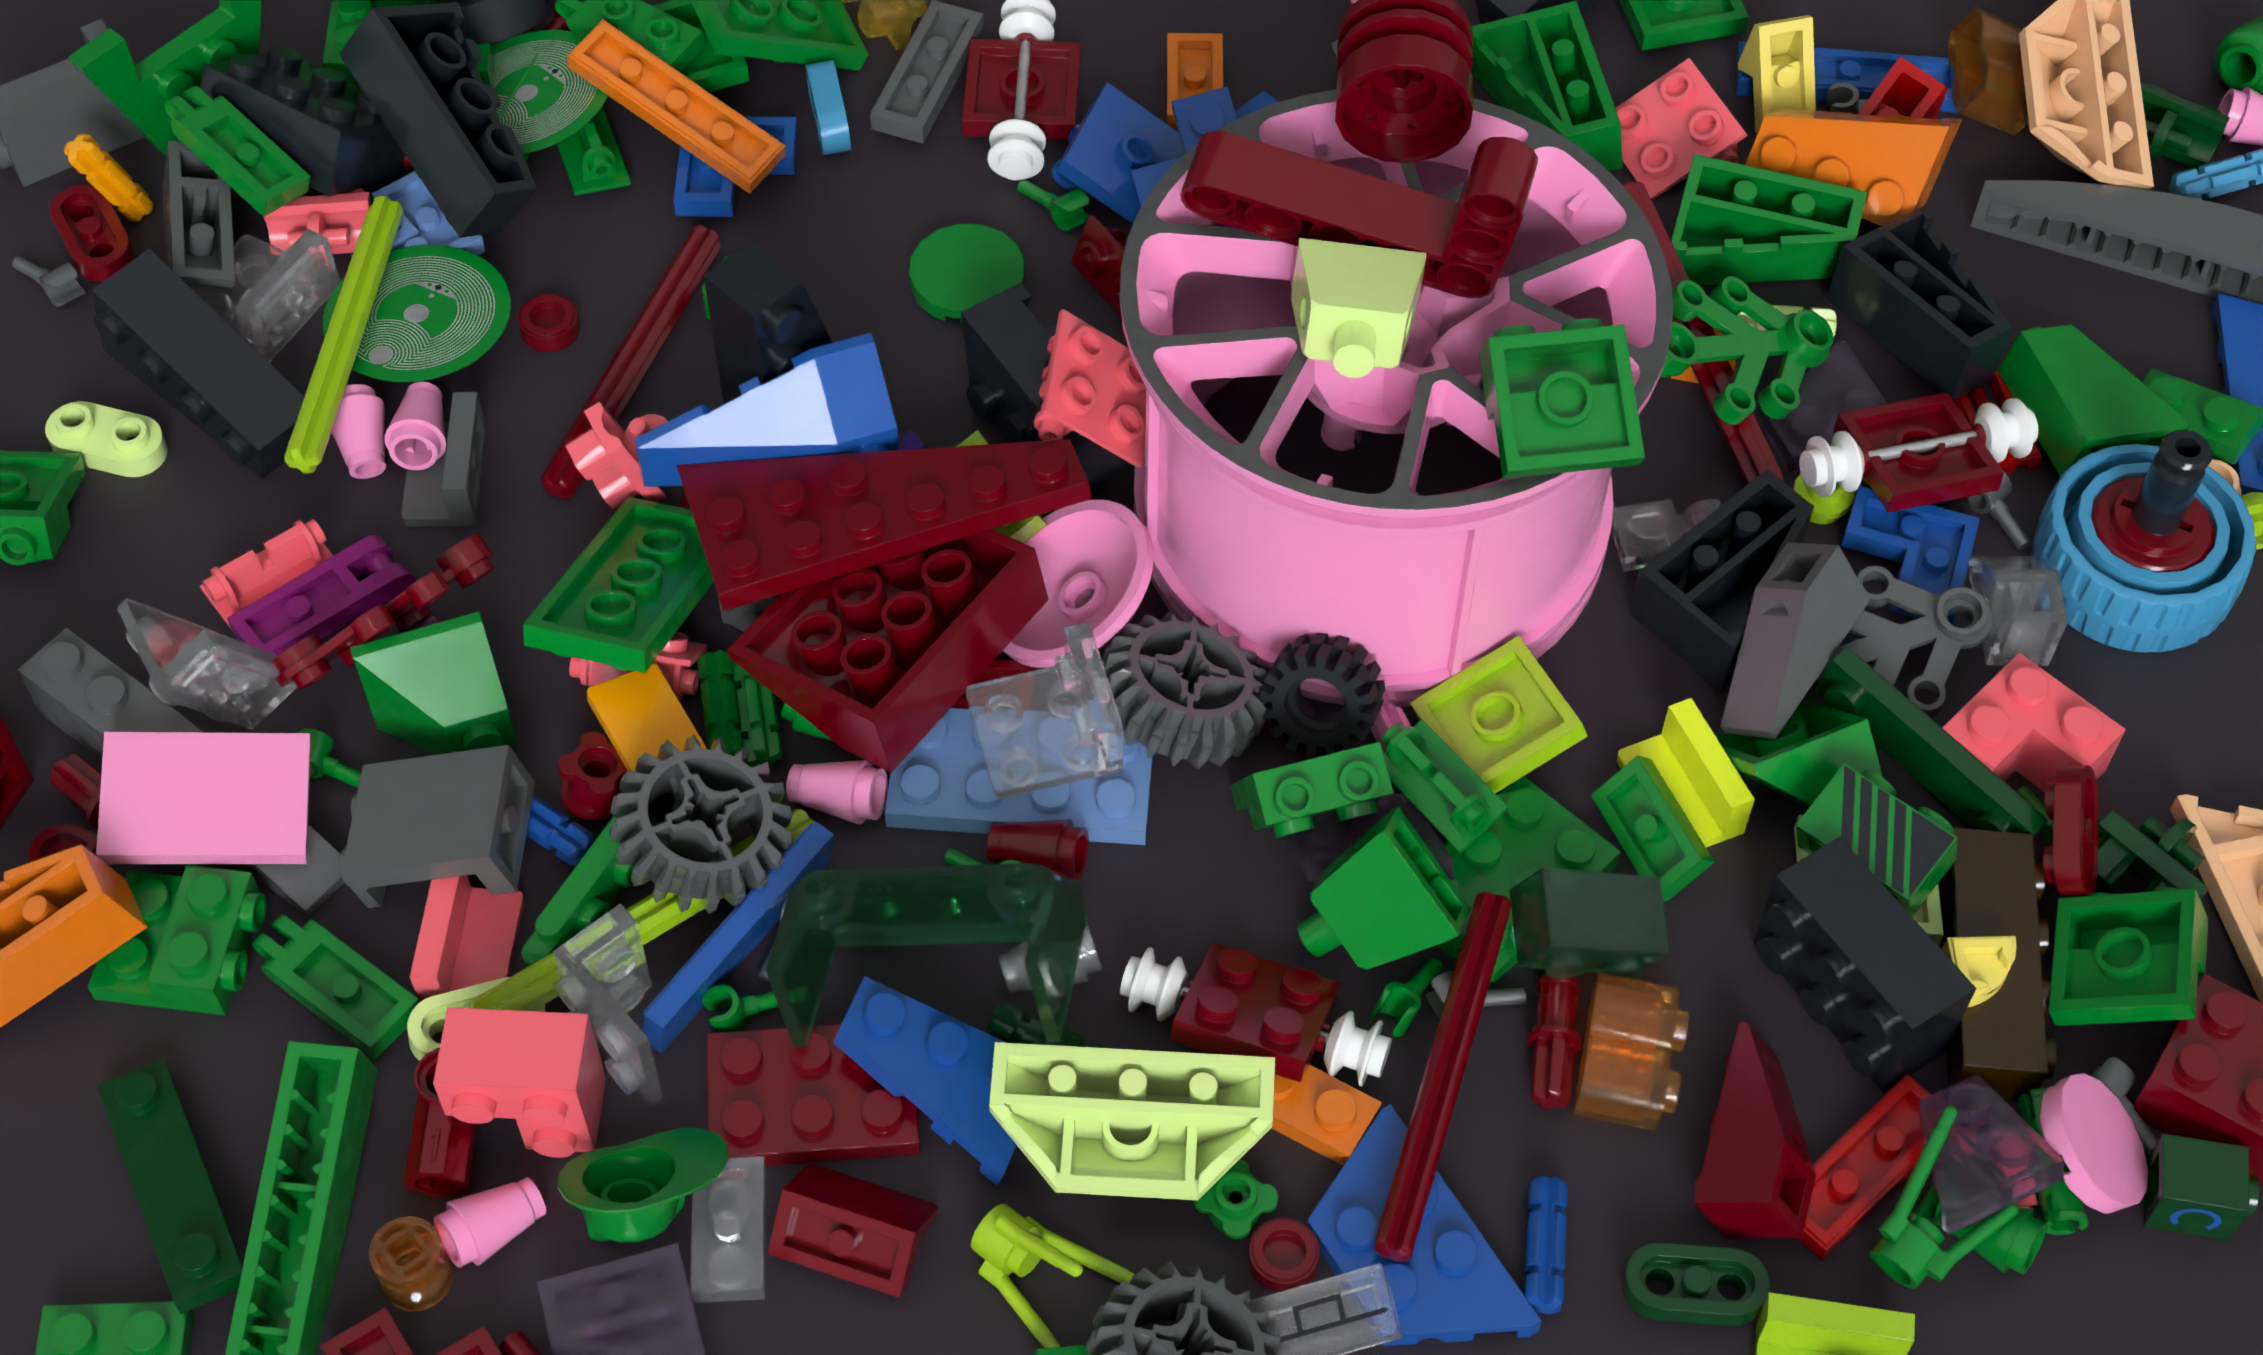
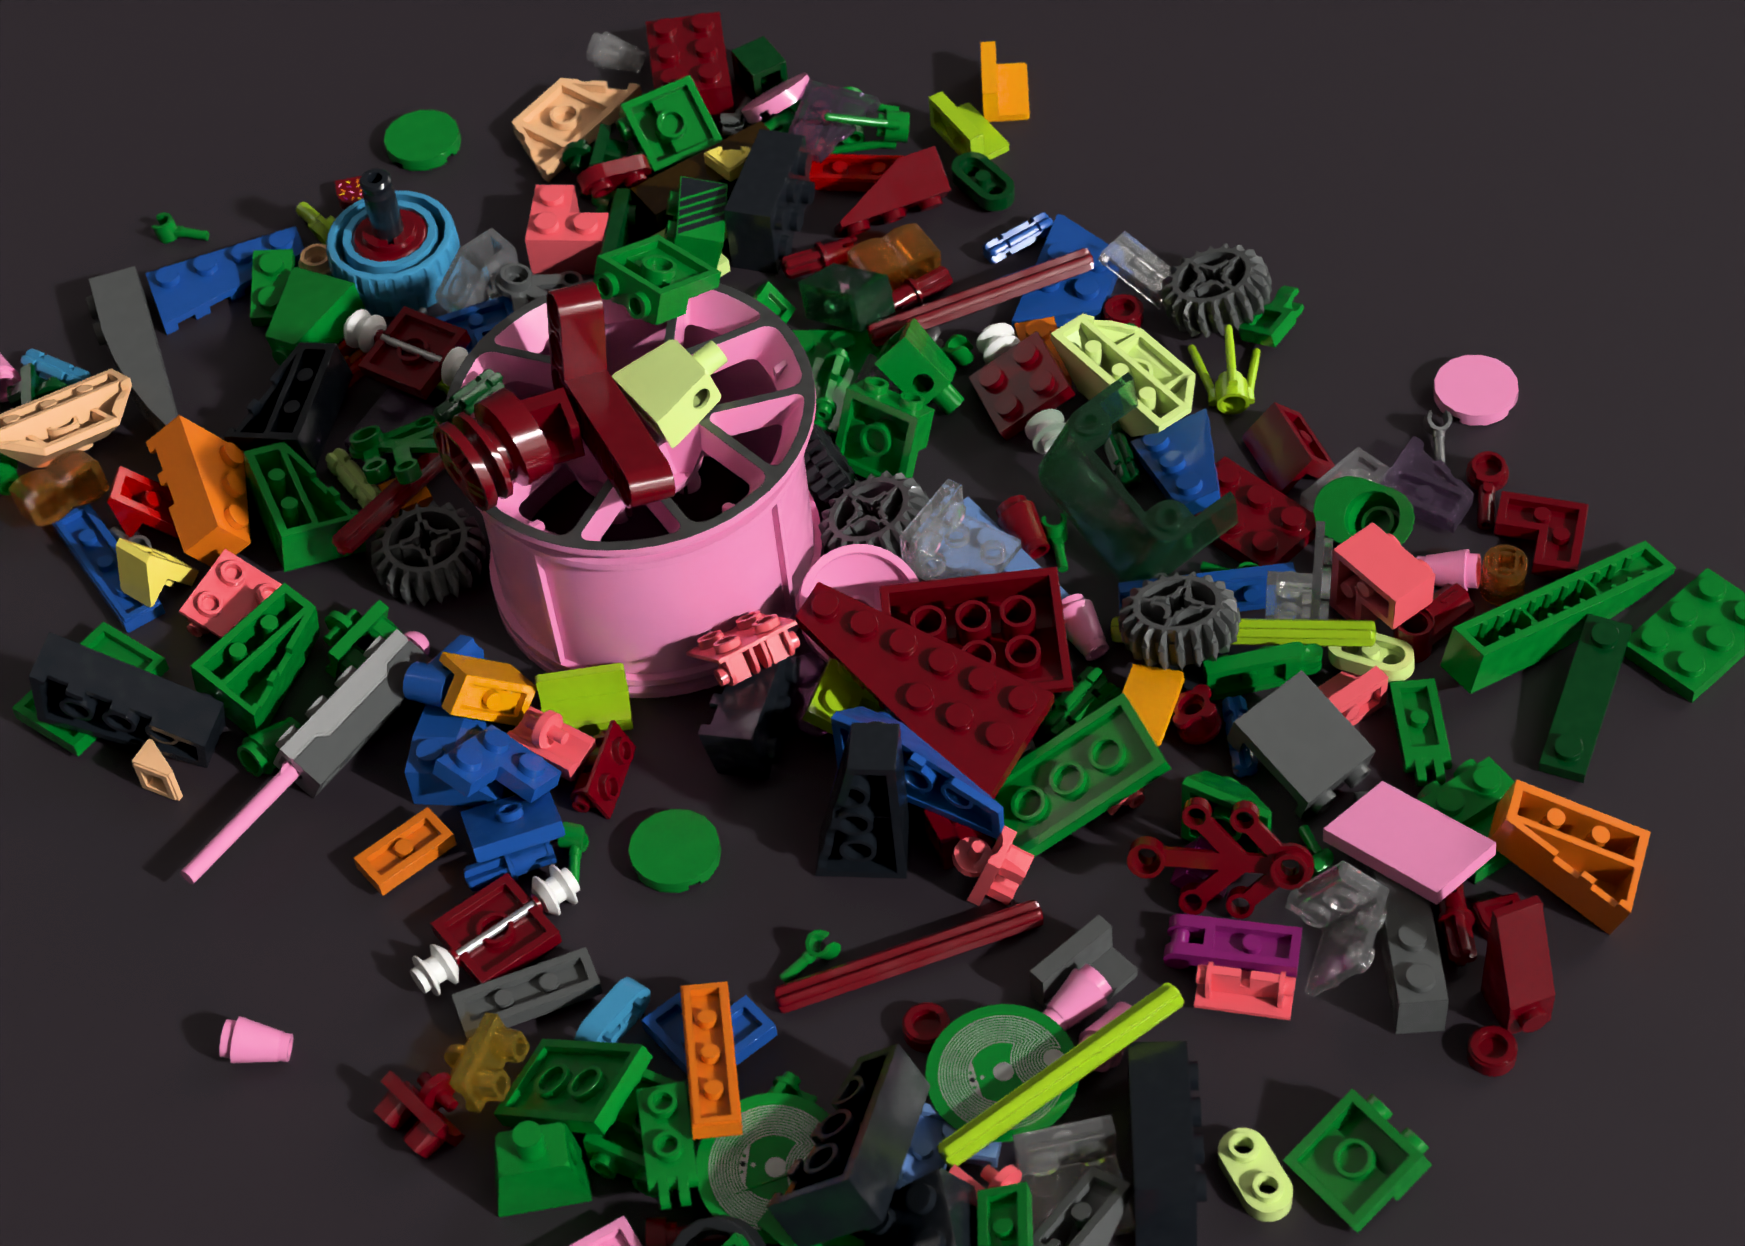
camera: 125 degrees left, 5 degrees down
(1431, 172) = (558, 424): none -> dark red panel
(1553, 153) = (467, 396): none -> dark green axle
(1721, 988) = (817, 257): none -> dark red axle

